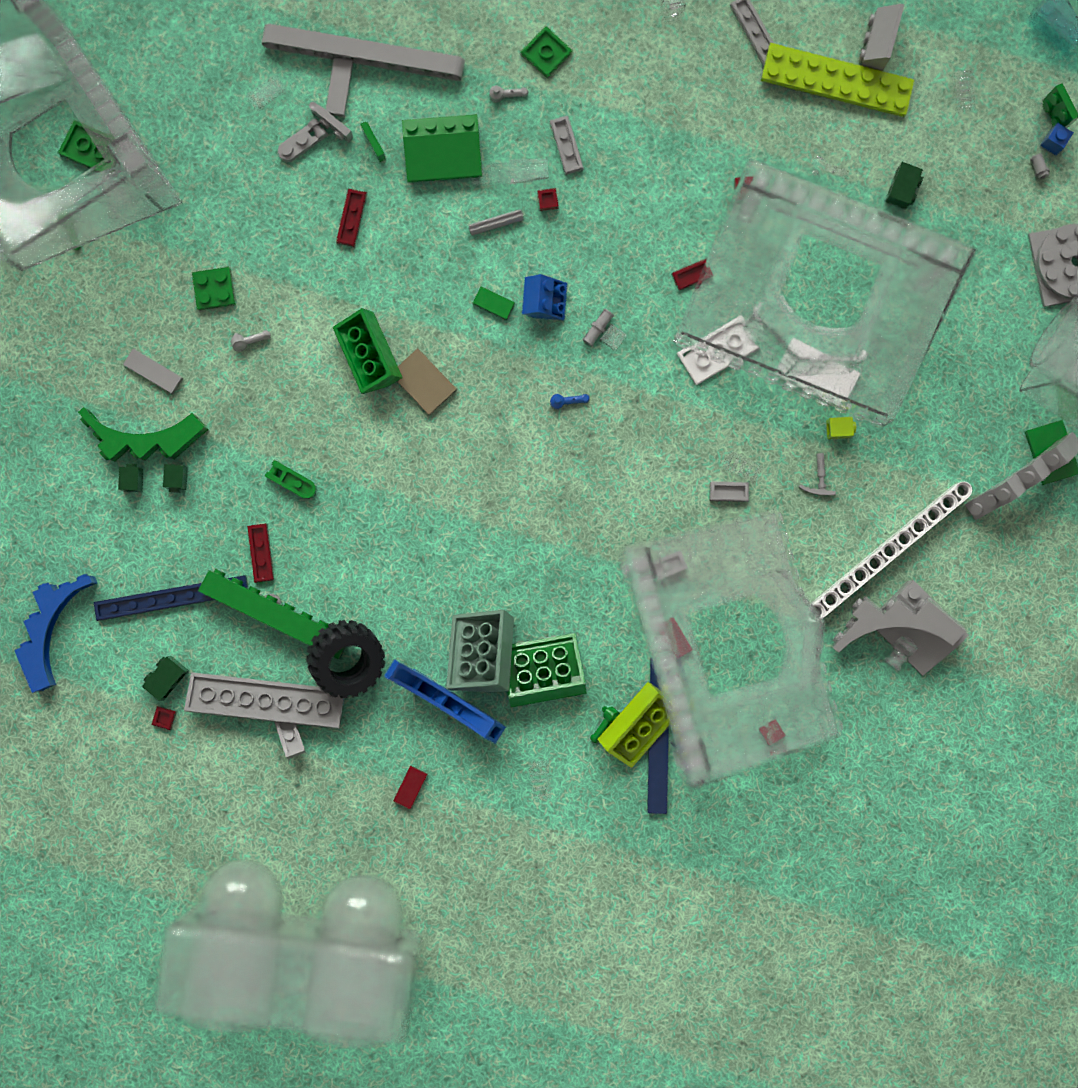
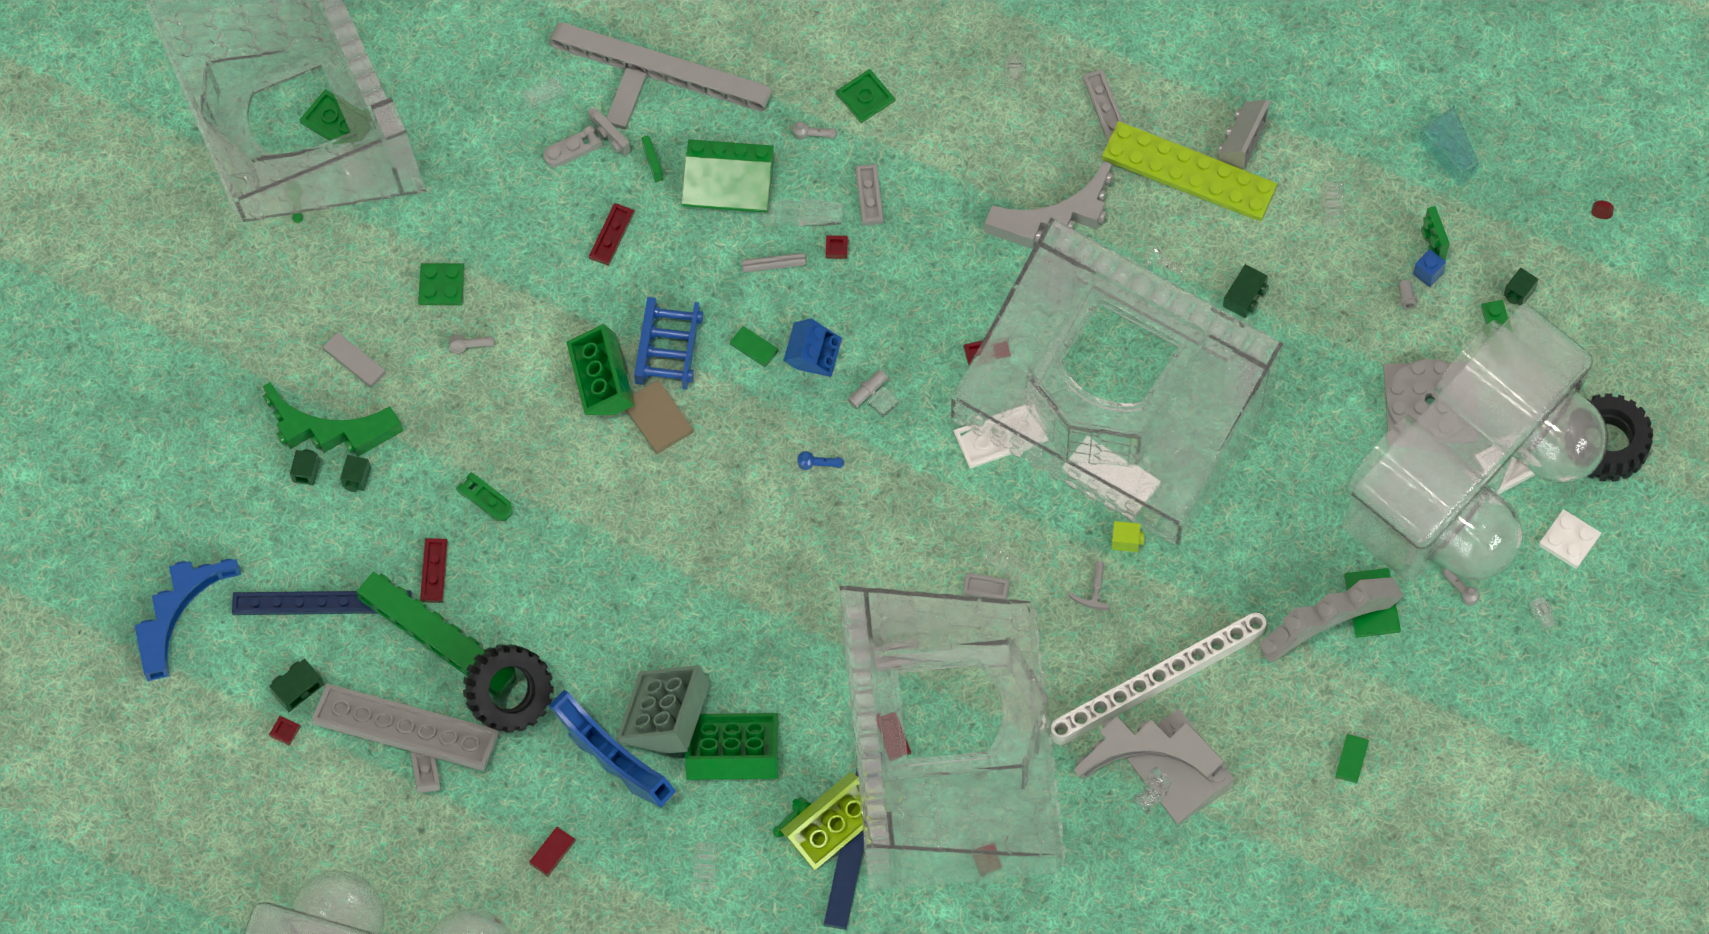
camera: 15 degrees right, 20 degrees down
(404, 323) = (650, 331): none -> blue fence
(707, 154) = (1027, 225): none -> light grey arch
(1056, 594) = (1352, 758): none -> green tile

